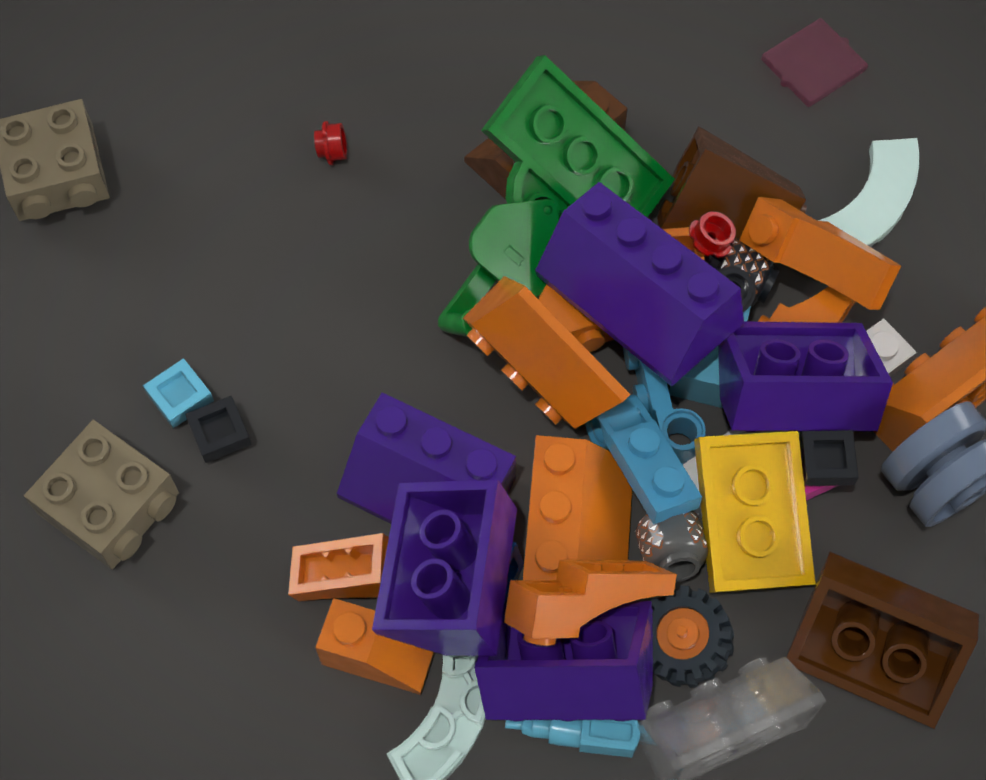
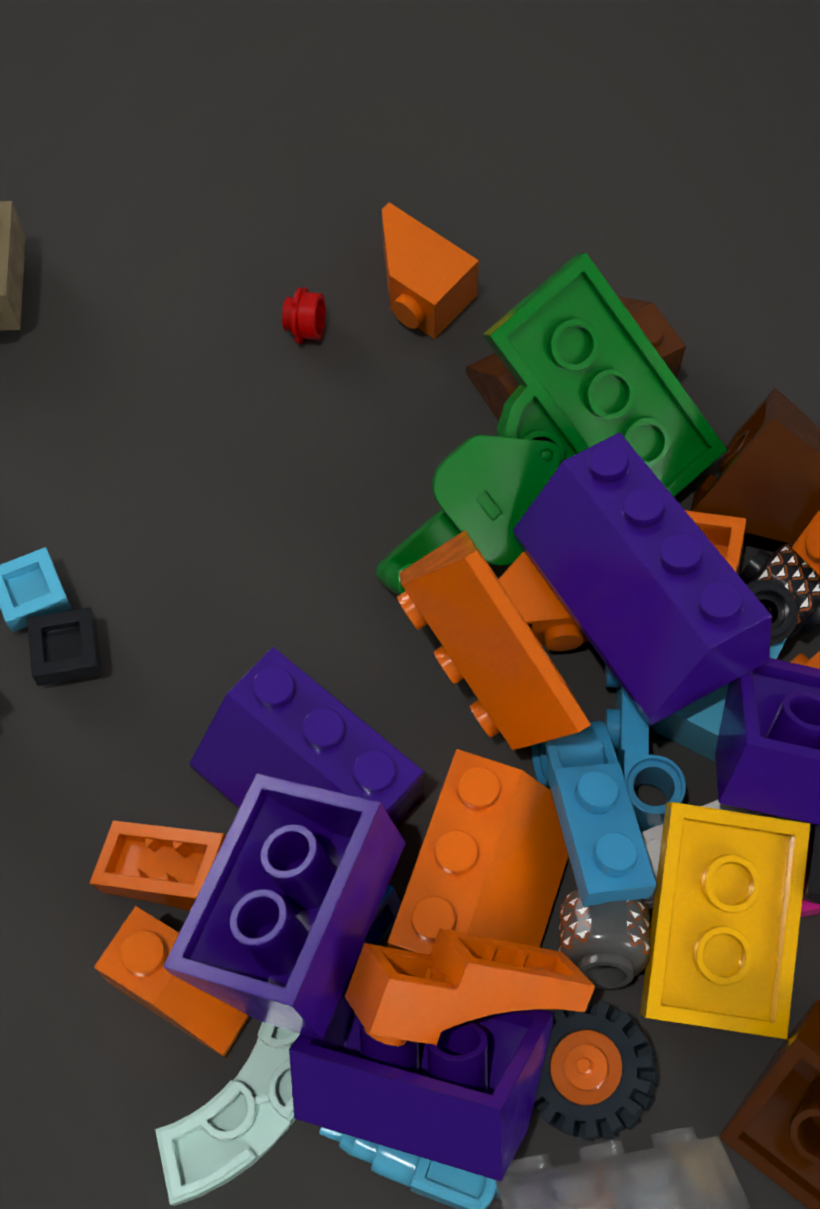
camera: 15 degrees right, 0 degrees up
(414, 91) = (425, 273): none -> orange slope
(712, 234) = (766, 524): red plate -> none

